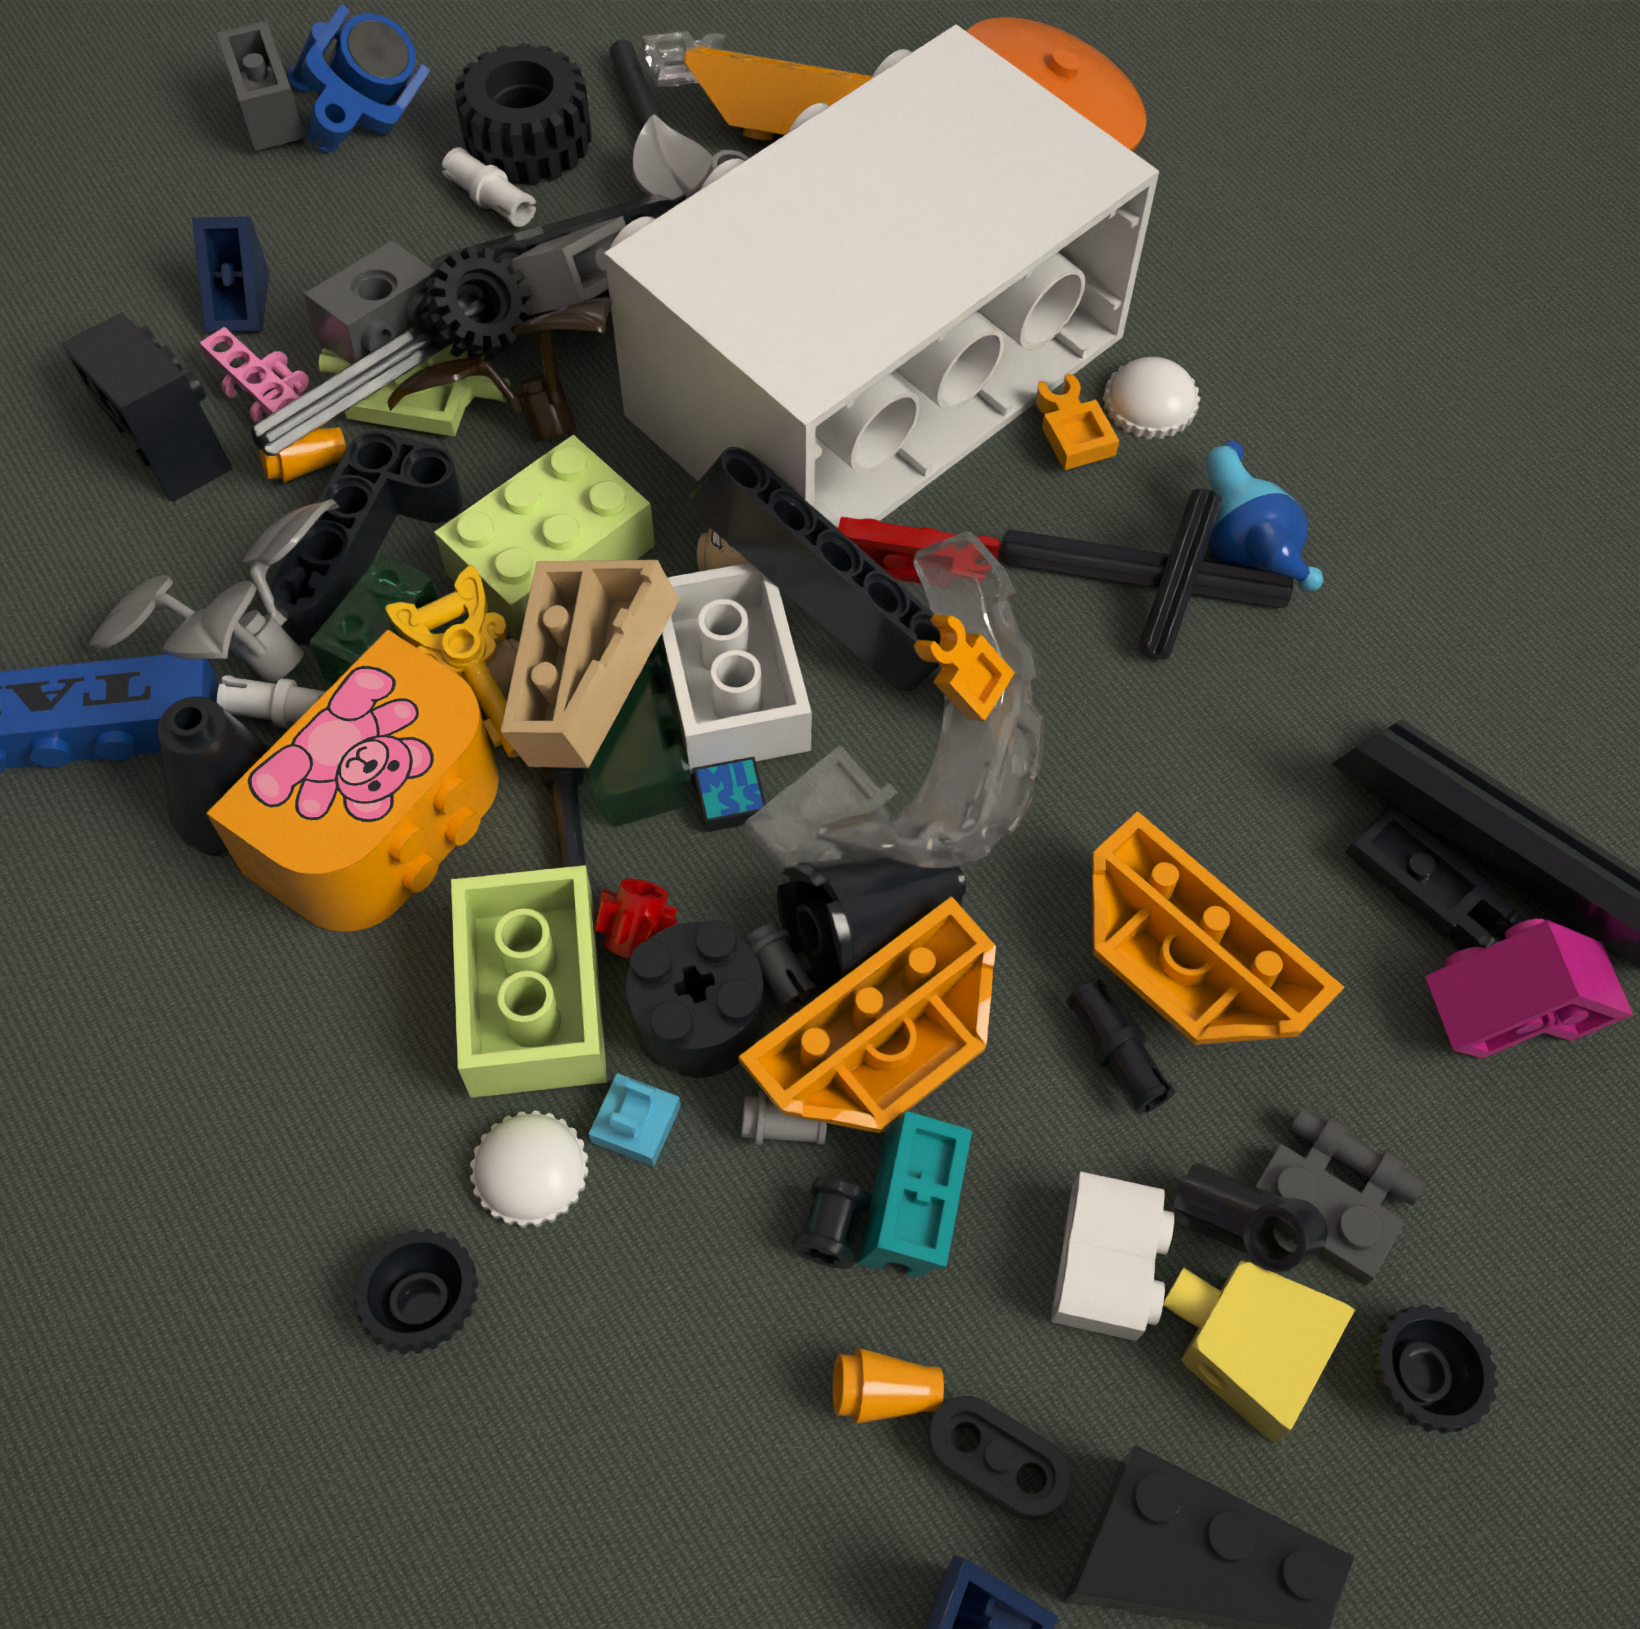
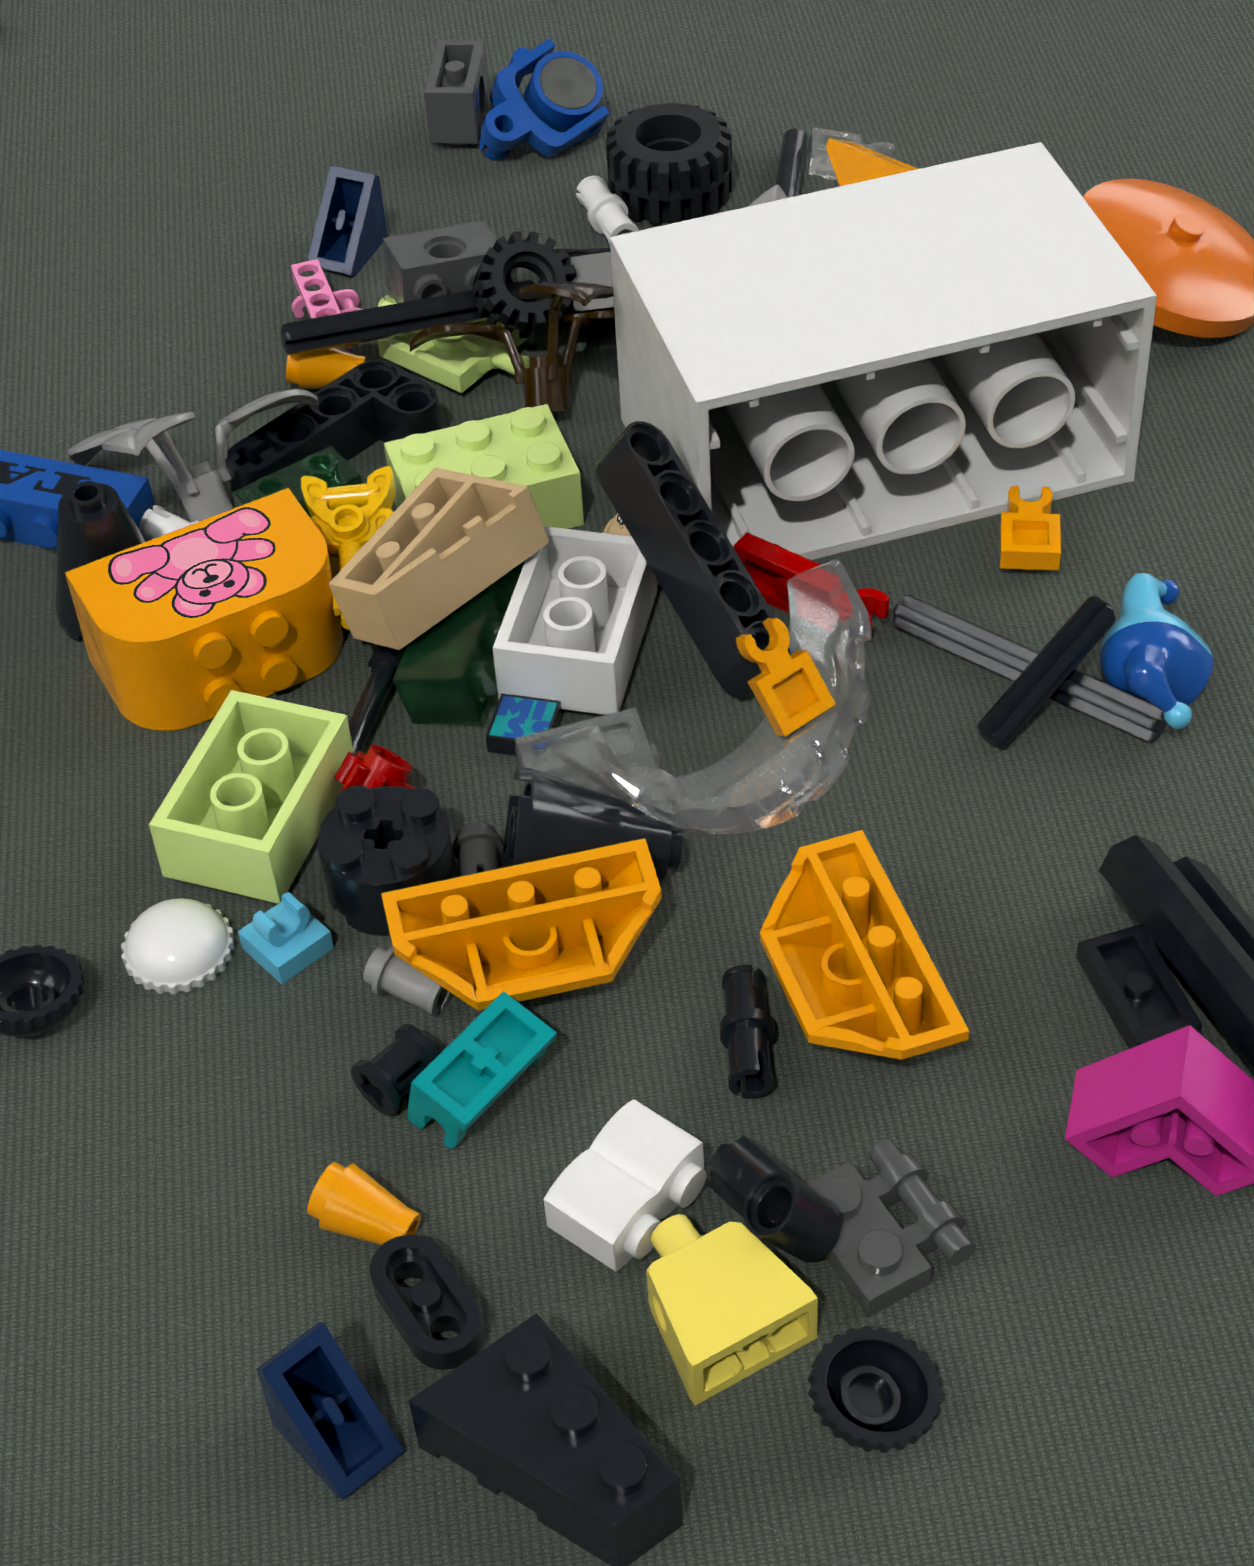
camera: 30 degrees right, 15 degrees down
(151, 401) = (221, 294): black wedge -> none
(1151, 397) = (1128, 534): white hat -> none

